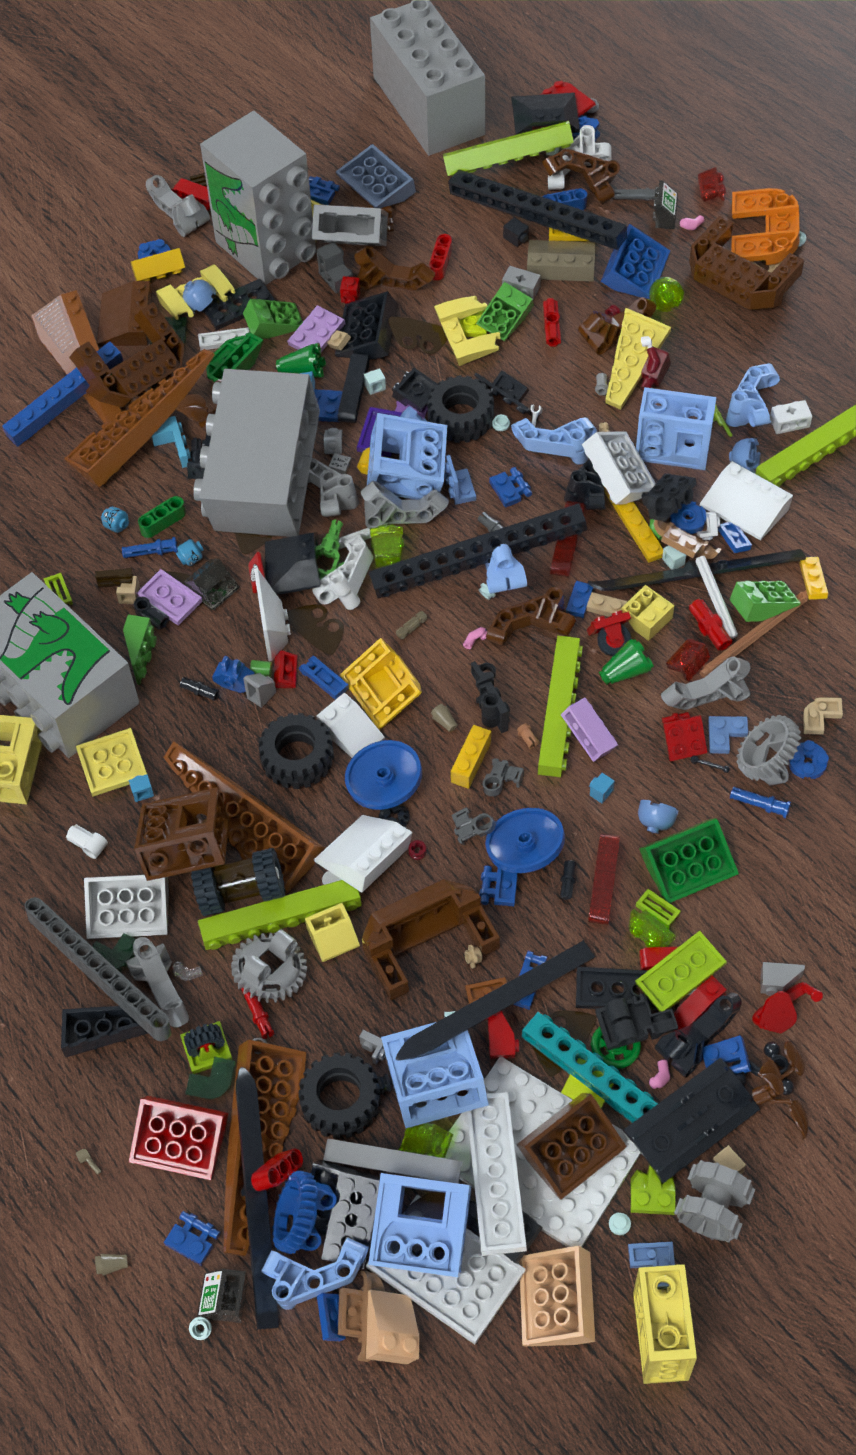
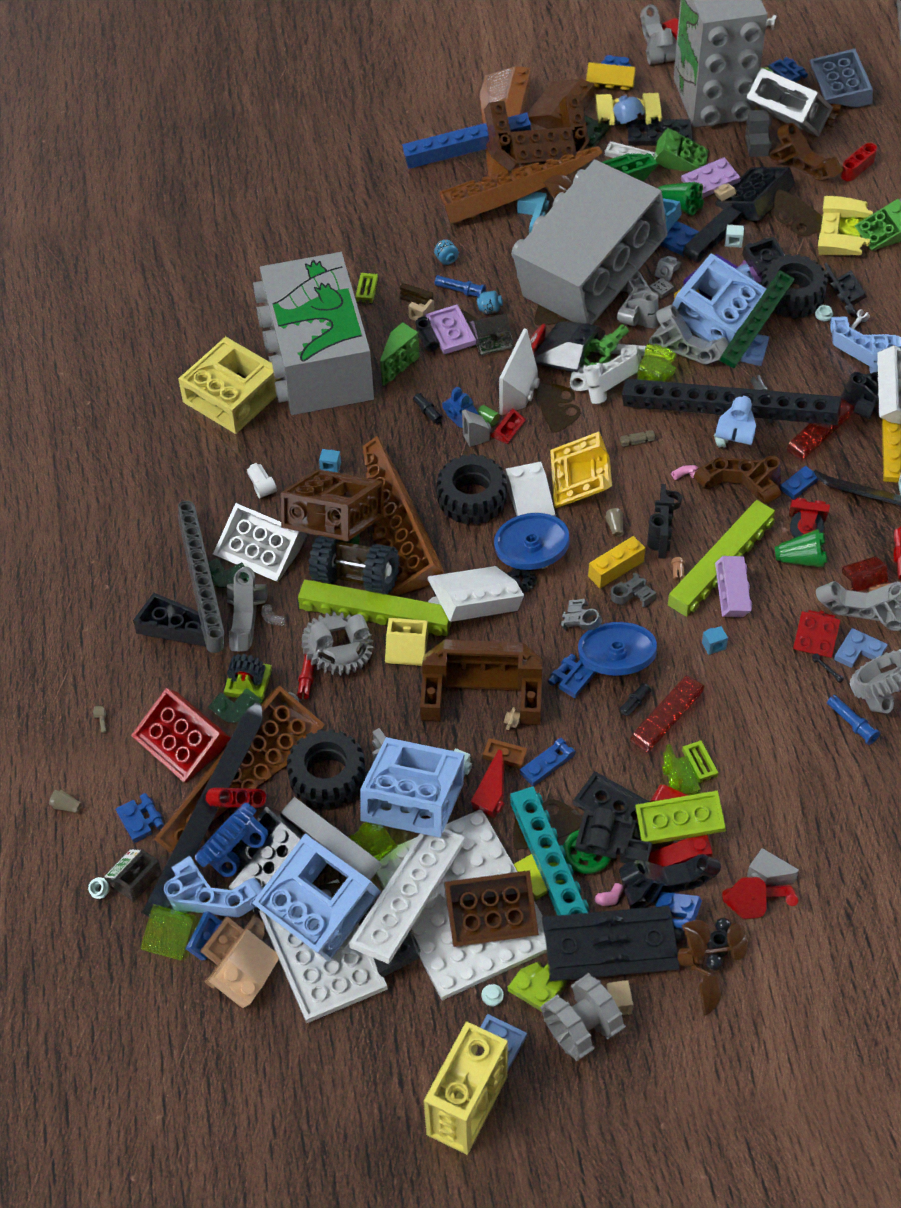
camera: 30 degrees right, 5 degrees down
(110, 761) = (320, 430): light yellow plate -> none
(162, 517) = (485, 266): green beam -> none
(295, 1333) = (167, 932): none -> clear neon green bracket
(324, 677) = (535, 445): blue plate -> none
(349, 289) = (761, 156): red brick -> none
(422, 852) = (520, 610): dark red bush -> none
(456, 460) = (756, 319): none -> dark green plate
(495, 1002) = (501, 758): black piece -> none
(505, 489) = (793, 367): blue plate -> none
(557, 1298) = (399, 1024): light nougat slope -> none
(604, 604) = (815, 492): tan plate -> none
(648, 612) = (852, 518): light yellow slope -> none
(656, 816) = (747, 684): medium blue cylinder -> none
(689, 860) = (754, 735): green slope -> none

